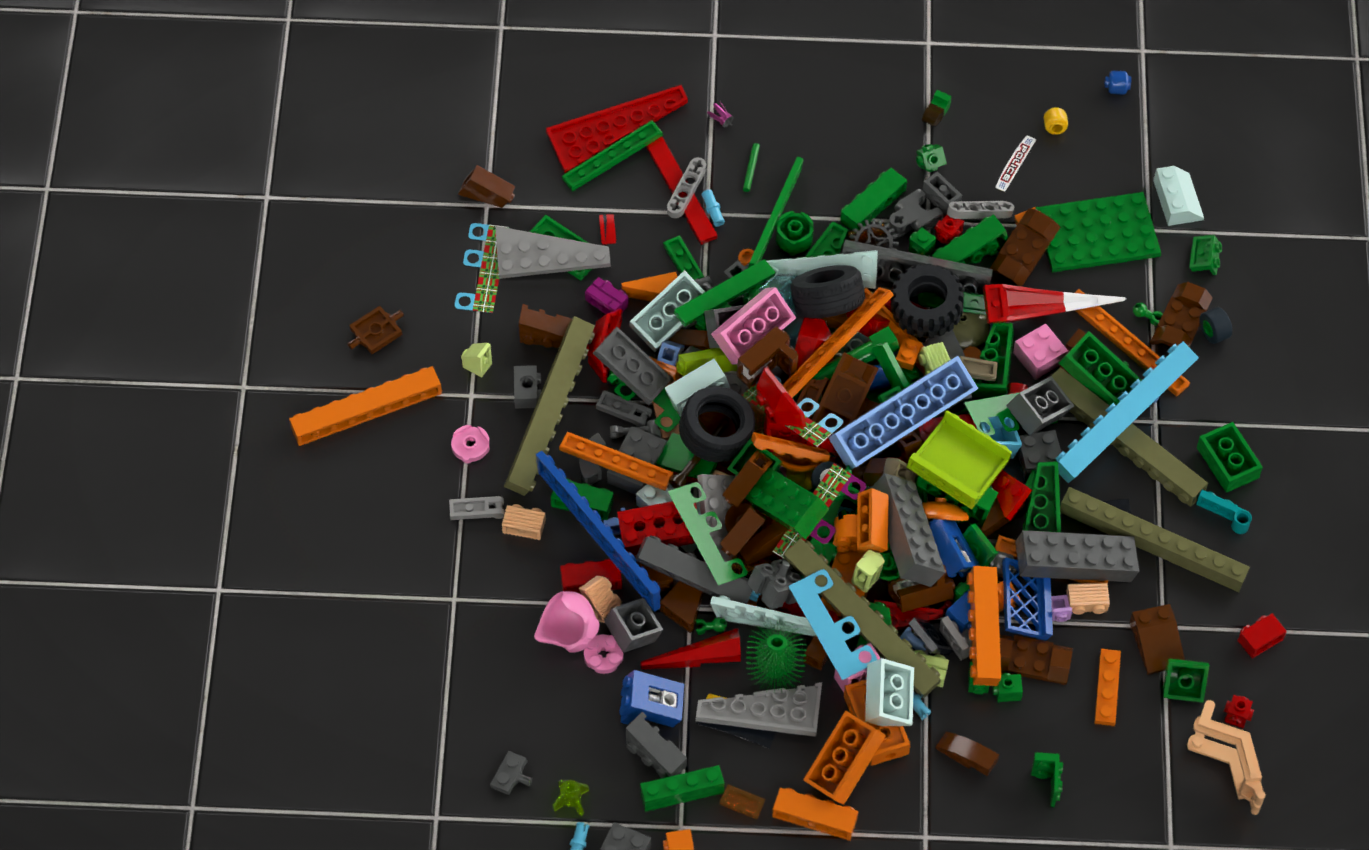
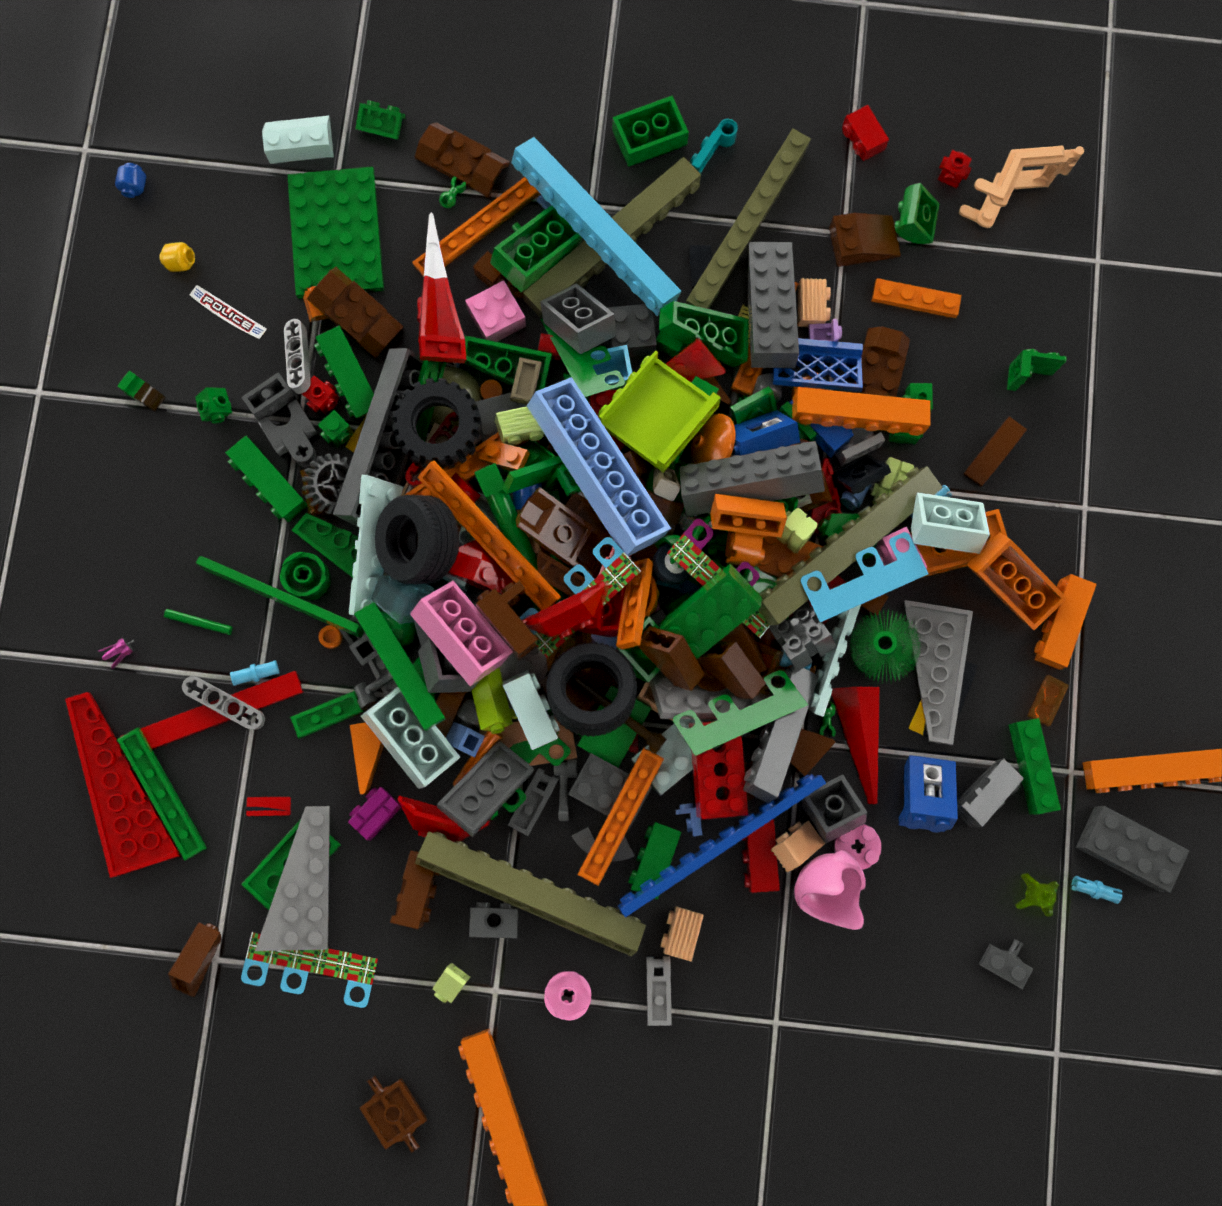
camera: 90 degrees left, 20 degrees up
(1215, 325) = (480, 119): black wheel -> none

